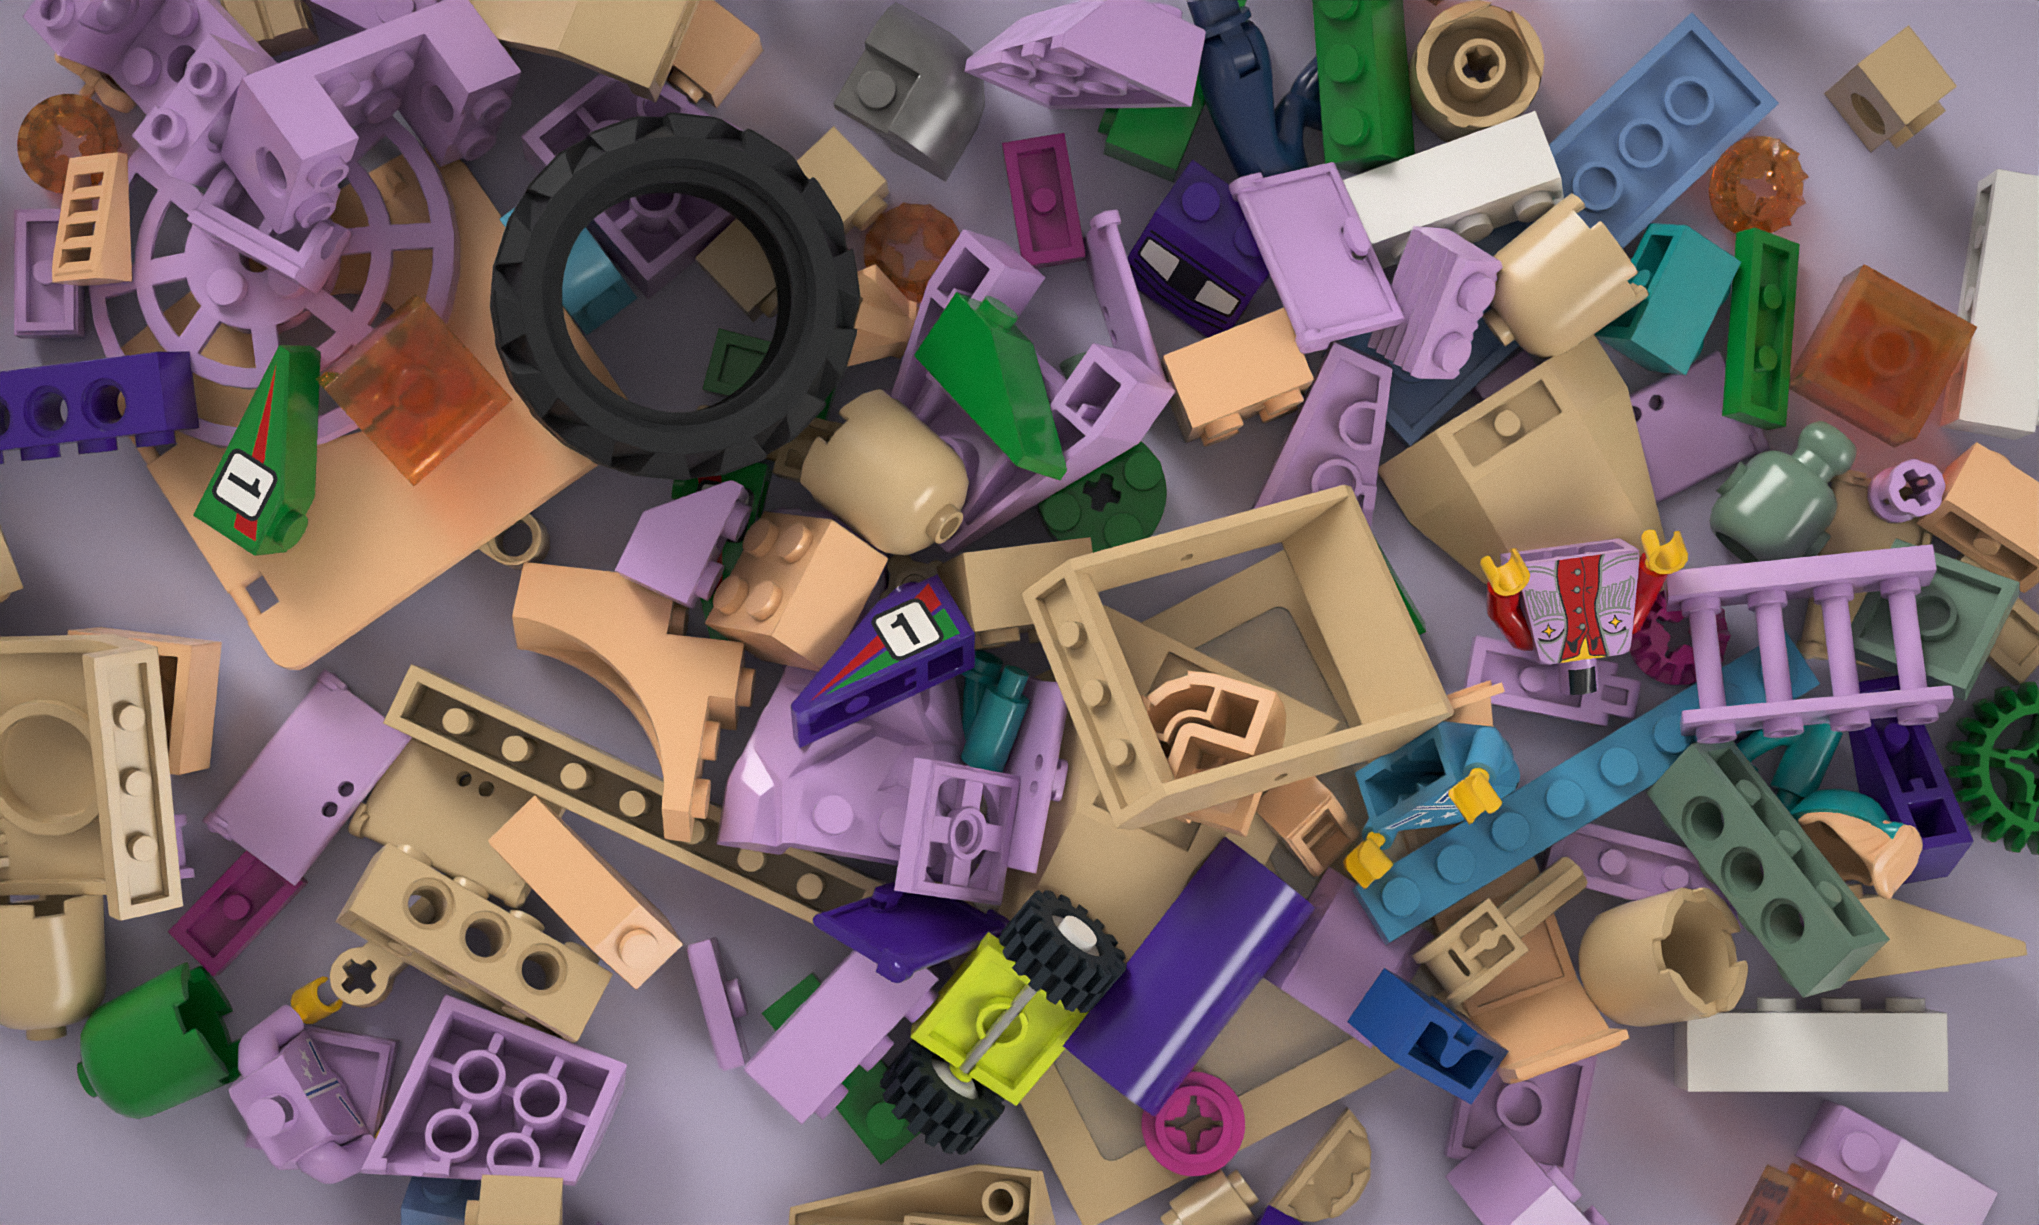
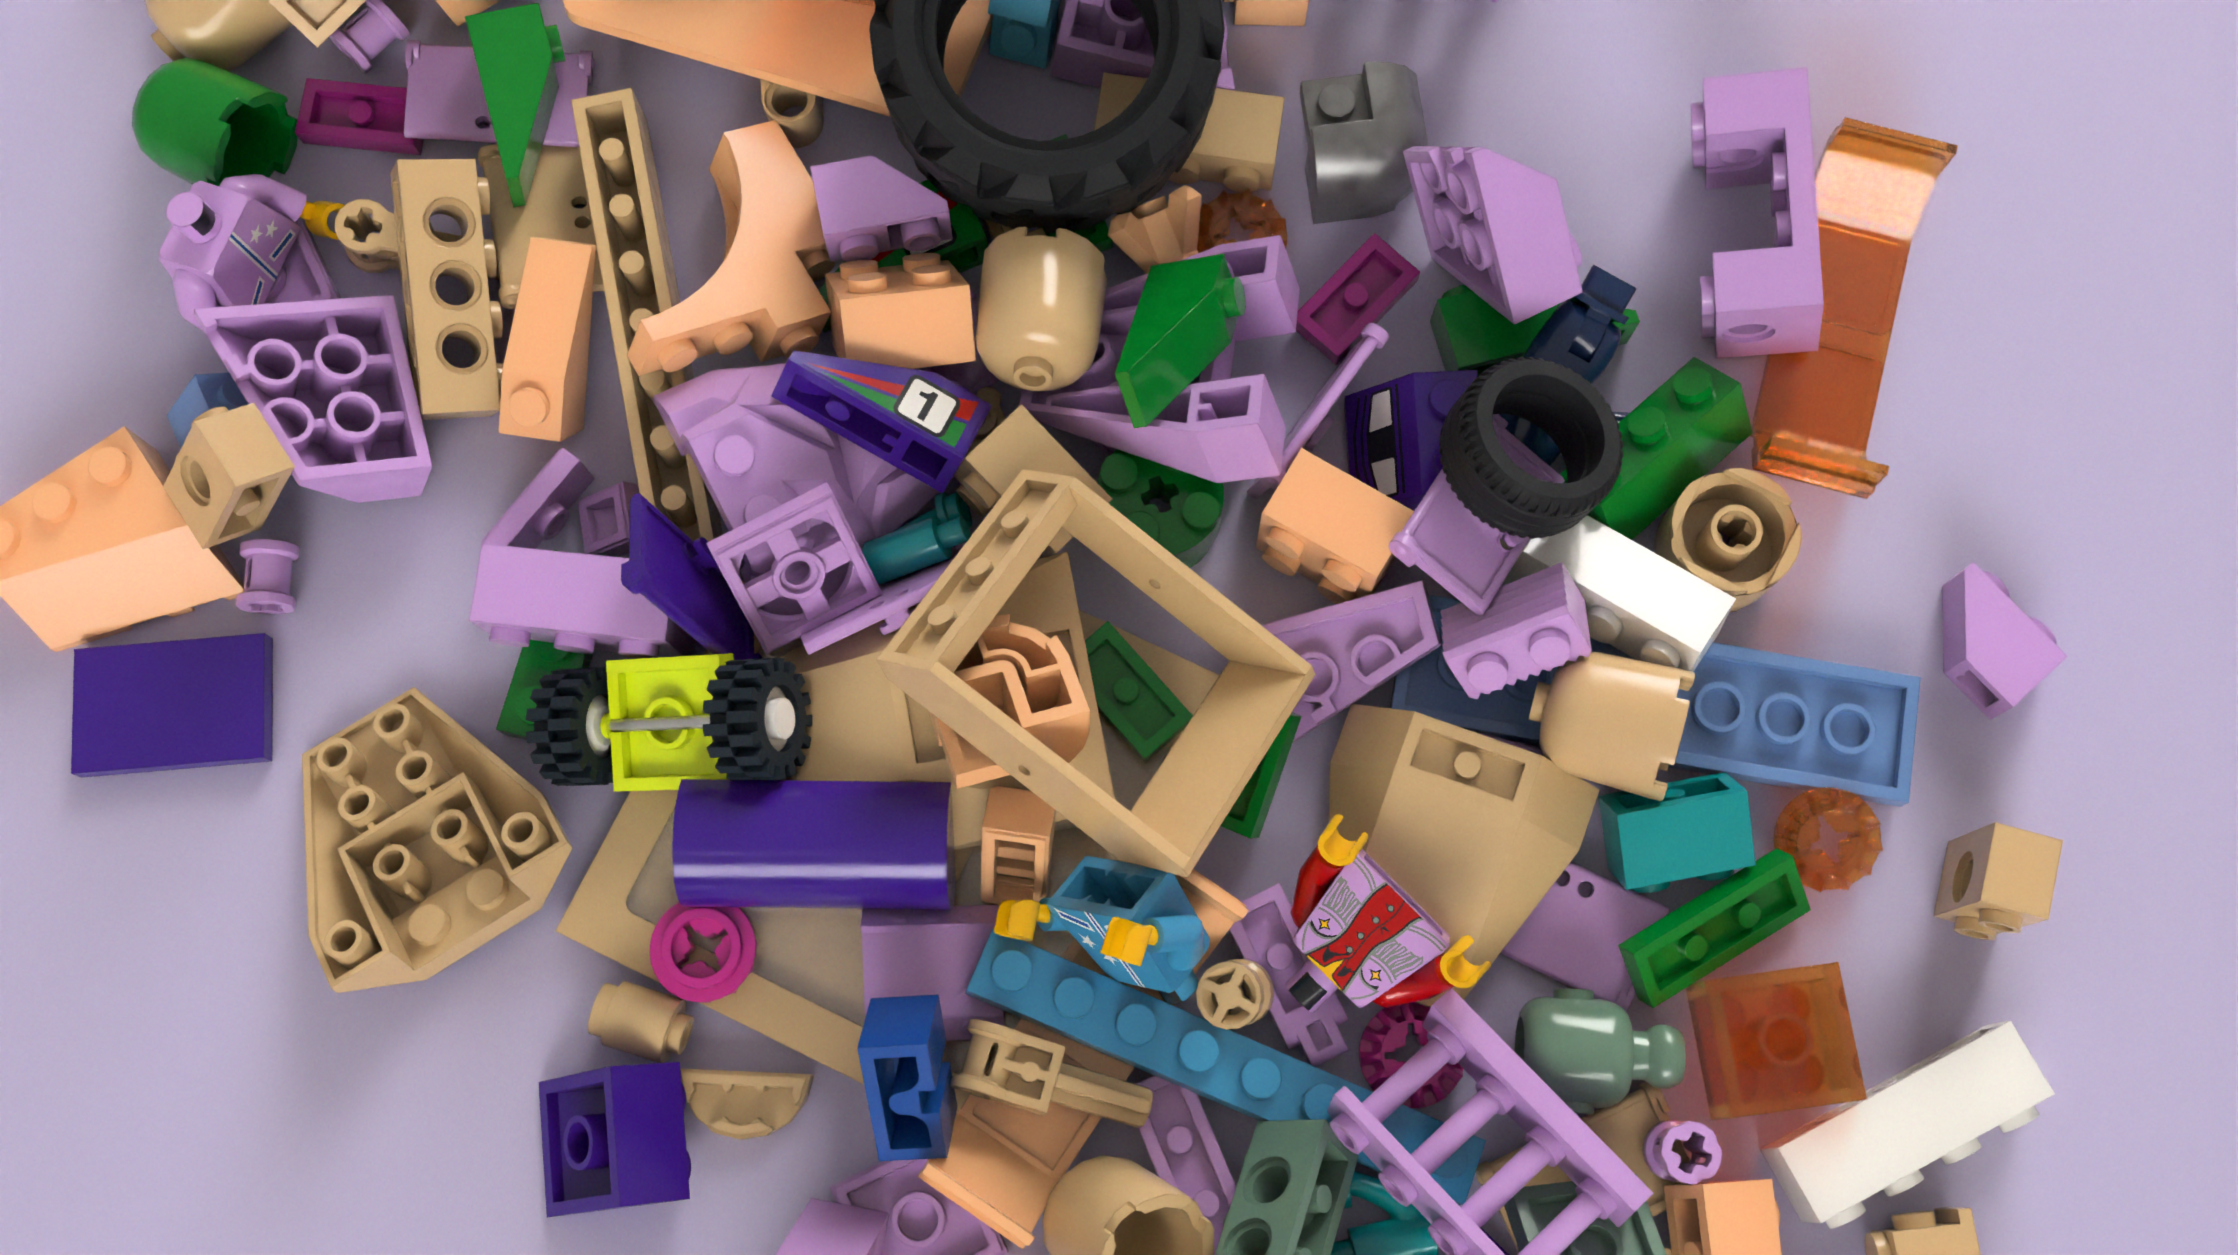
camera: 55 degrees right, 10 degrees down
(314, 751) = (519, 85): none -> green slope
(772, 945) = (607, 520): none -> lavender slope
(1245, 636) = (1132, 694): none -> green plate
(1316, 123) = (1564, 409): none -> black tyre
(1544, 750) = (1223, 999): none -> tan wheel

